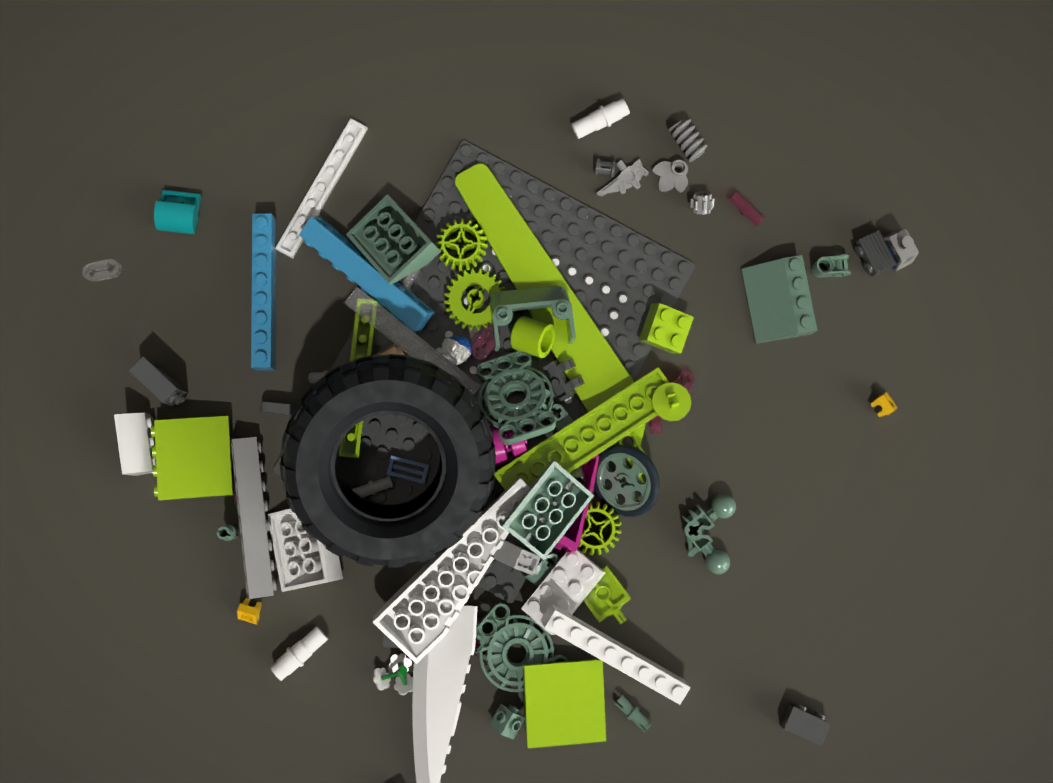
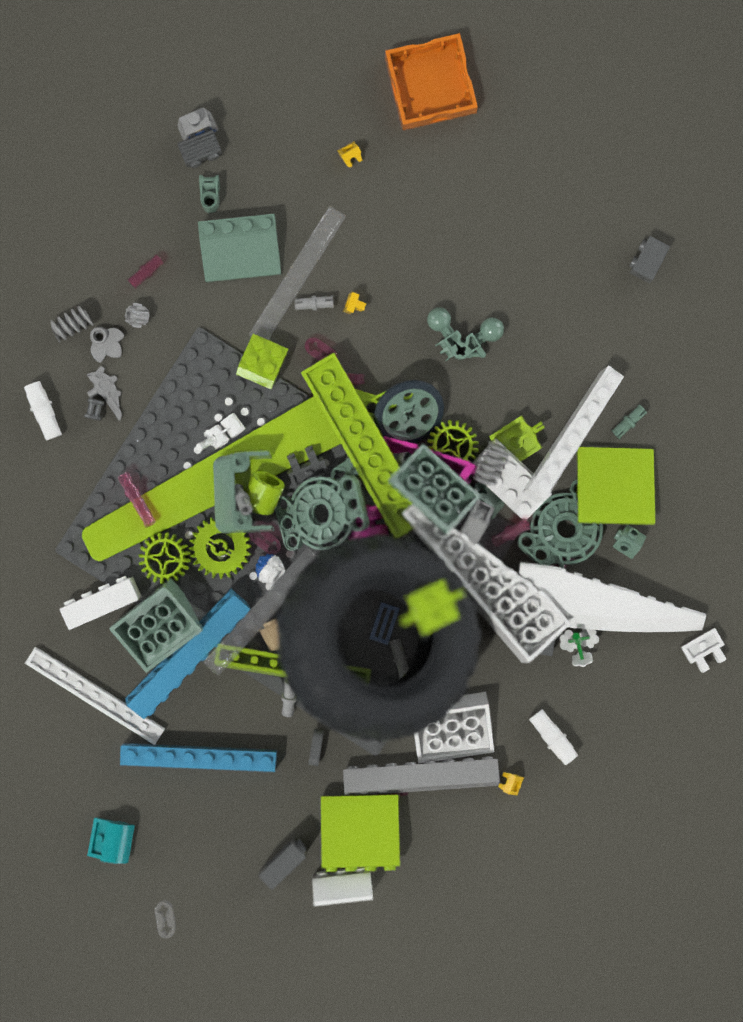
camera: 85 degrees left, 5 degrees up
(228, 532) = (432, 796): sand green pin -> none
(411, 182) = (100, 603): none -> white brick
(421, 513) = (432, 607): none -> lime plate
(508, 594) = (510, 532): none -> clear pink pin
(521, 211) = (139, 504): none -> clear pink pin
(524, 314) = (242, 500): none -> light grey pin
(577, 569) = (492, 464): none -> light grey piece
(589, 293) = (221, 434): none -> white beam
(671, 401) = (336, 362): lime piece -> none
(729, 378) = (314, 303): none -> light grey pin
(731, 418) = (353, 303): none -> yellow tile
(758, 360) = (298, 273): none -> clear tile
(967, 482) = (431, 82): none -> orange tile

